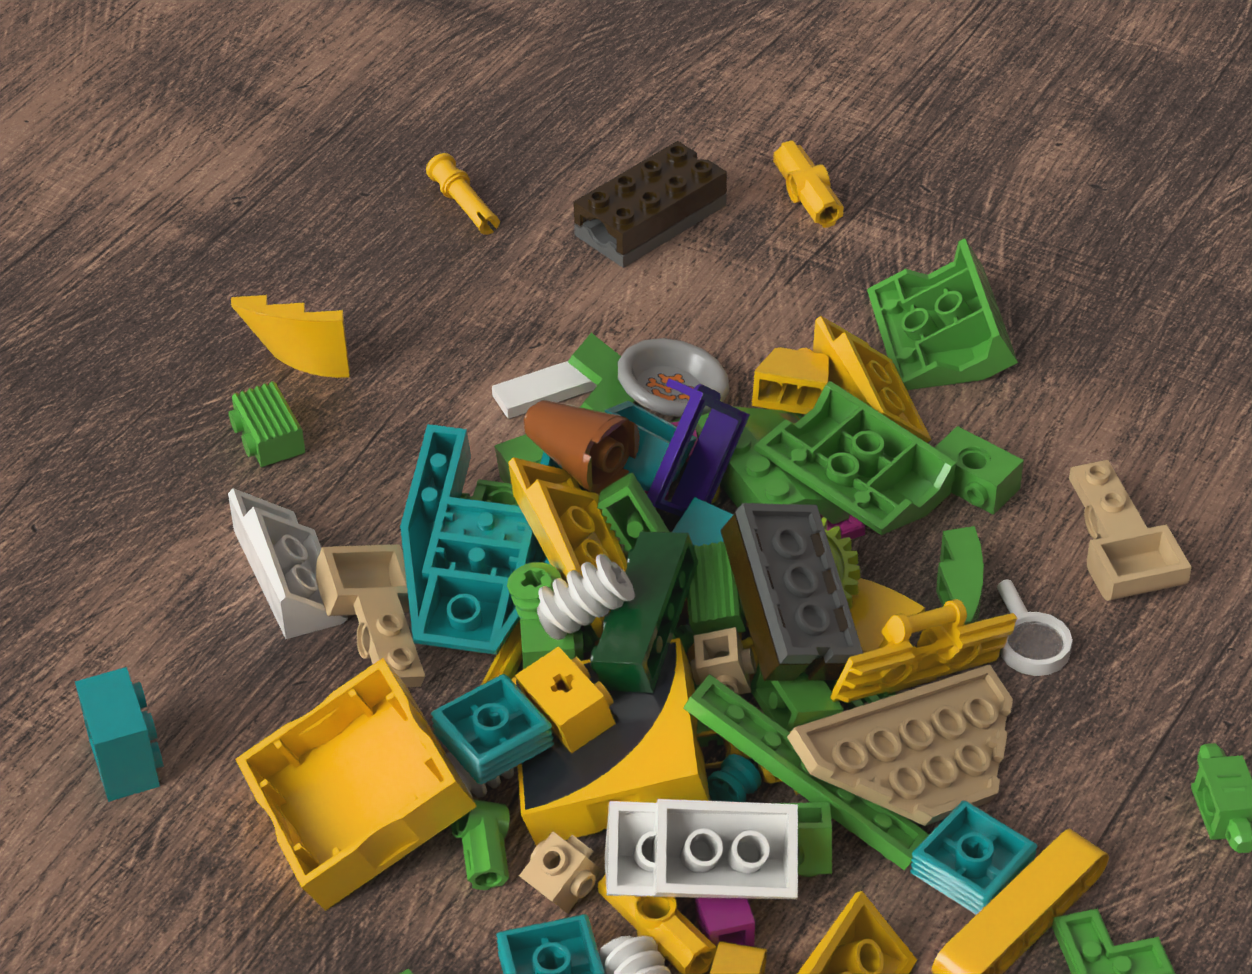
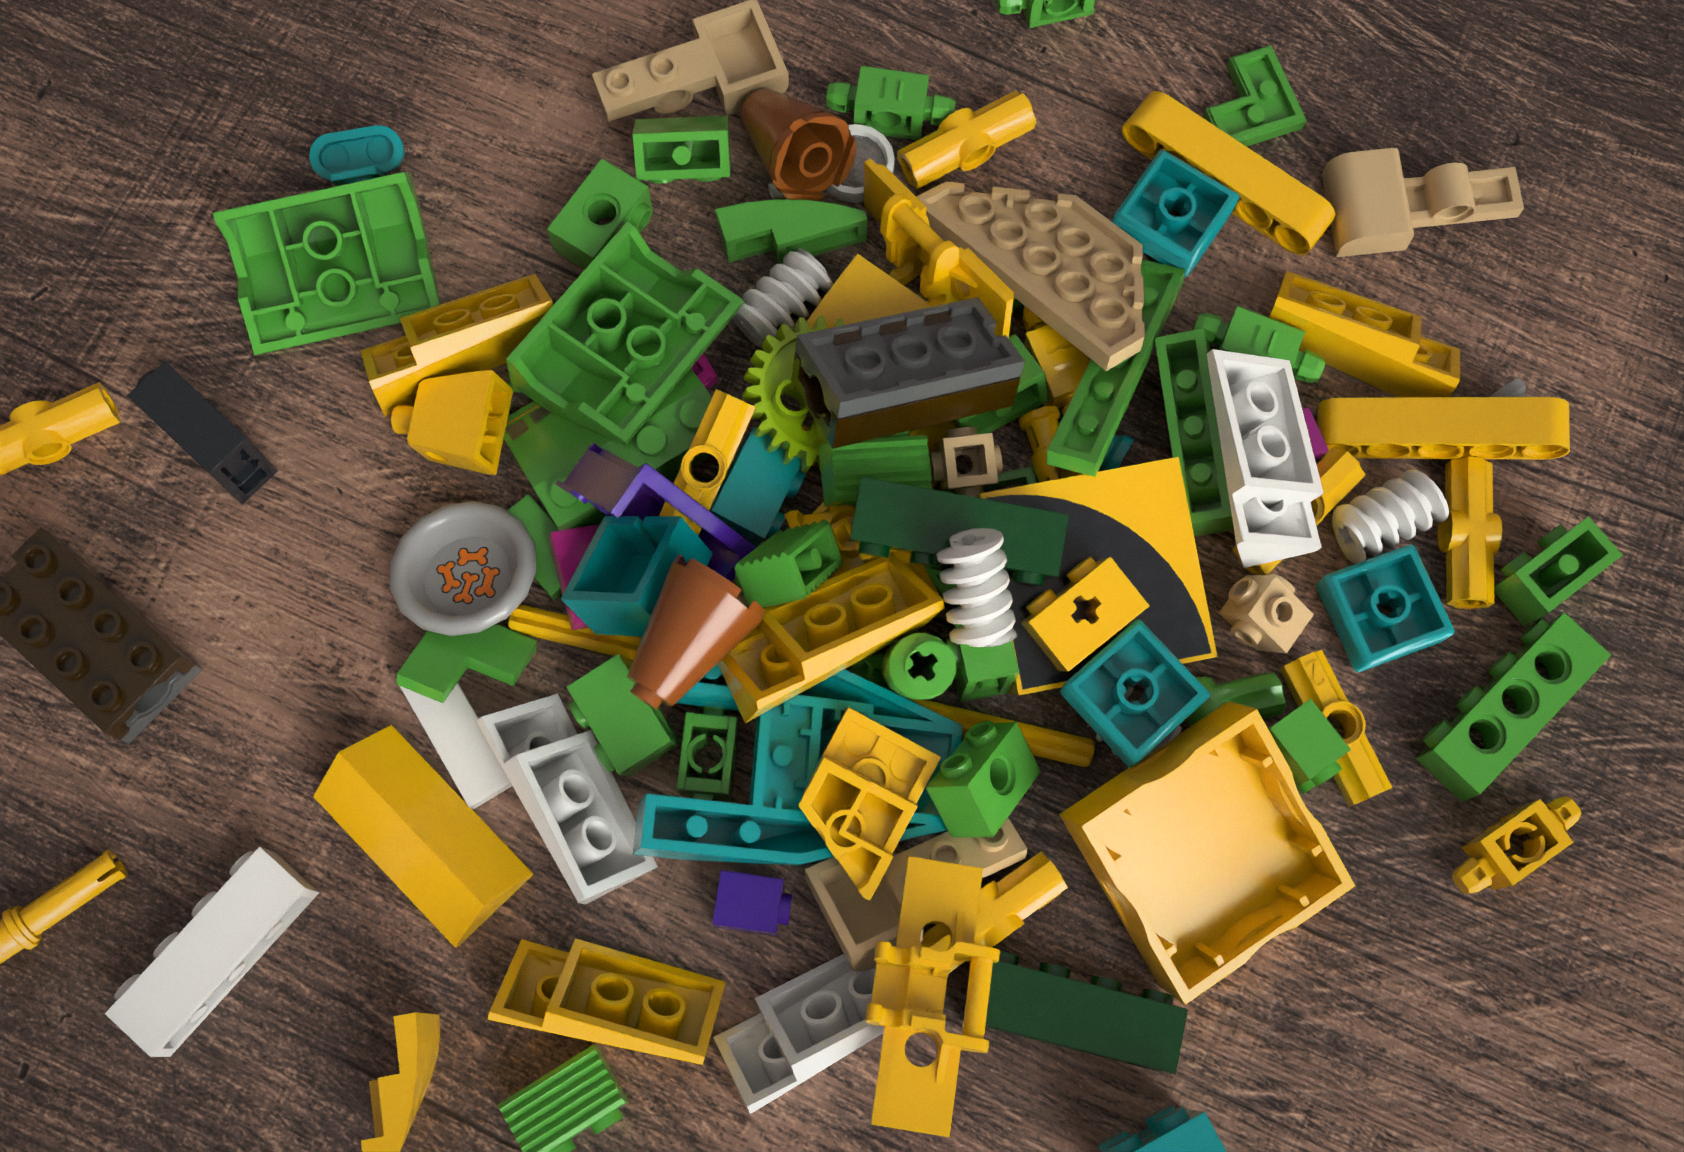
camera: 100 degrees left, 30 degrees up
(249, 707) = (1084, 1015): none -> dark green brick
(284, 578) = (912, 991): none -> yellow piece
(328, 448) = (610, 999): none -> yellow slope
(333, 655) = (1006, 904): none -> yellow piece
(381, 520) = (751, 903): none -> dark purple brick
(418, 264) = (211, 952): none -> white brick
(423, 642) = (983, 779): none -> bright green brick
(429, 866) = (1309, 746): none -> bright green brick
(445, 565) = (866, 795): none -> yellow slope
(447, 918) = (1314, 679): none -> yellow piece
(469, 368) = (421, 833): none -> yellow slope
(488, 414) = (567, 796): none -> white slope
(727, 486) = (719, 436): none -> yellow piece
(776, 275) = (202, 432): none -> black window
(822, 903) = (1262, 336): none -> bright green piece
(892, 568) = (782, 295): none -> white piece
(1031, 335) = (357, 154): none -> teal bracket
(1036, 577) = (798, 143): none -> dark orange cone
(1038, 515) = (682, 149): none -> bright green brick
(1057, 716) = (966, 139): none -> yellow piece
(1092, 662) = (890, 102): none -> bright green piece

